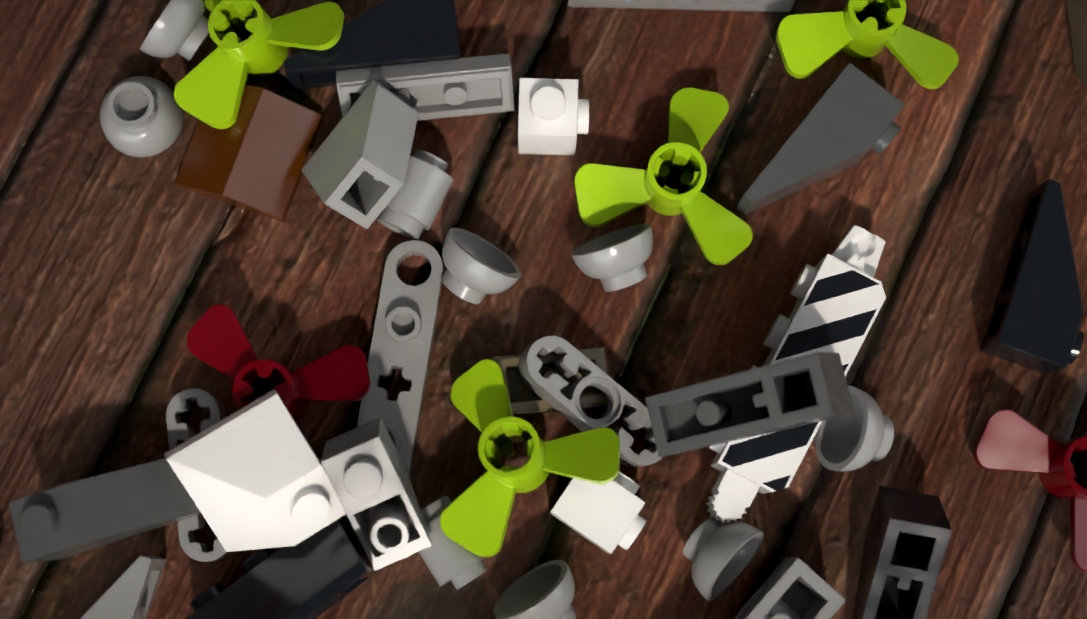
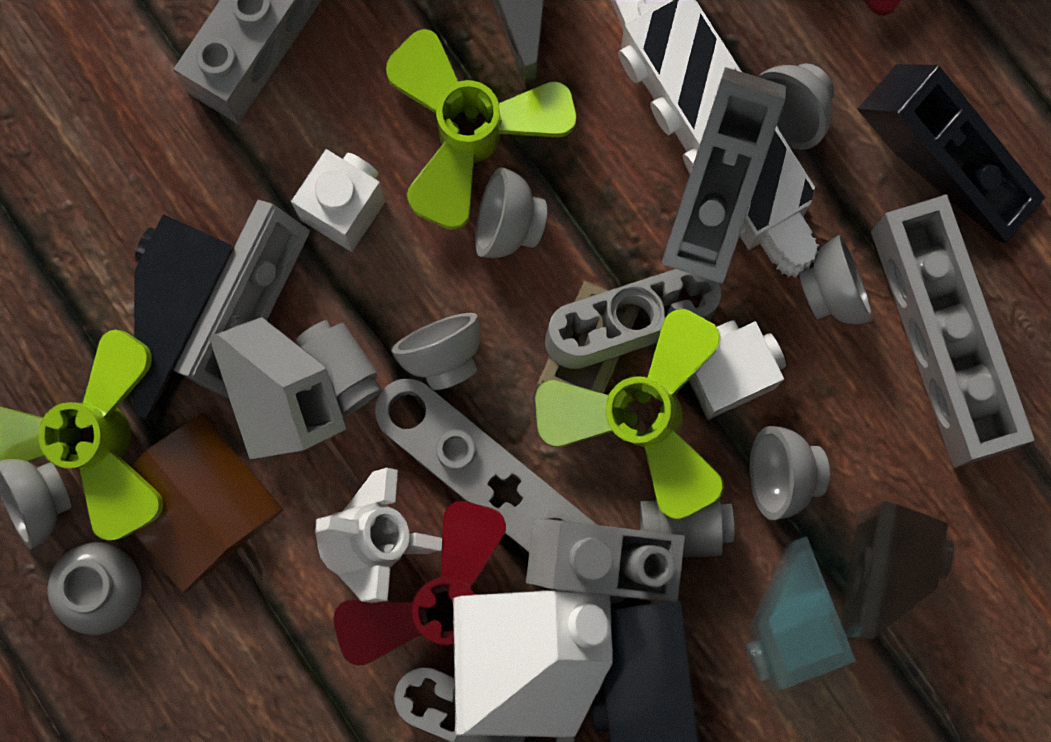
camera: 55 degrees left, 0 degrees up
(290, 297) = (370, 538): none -> white brick

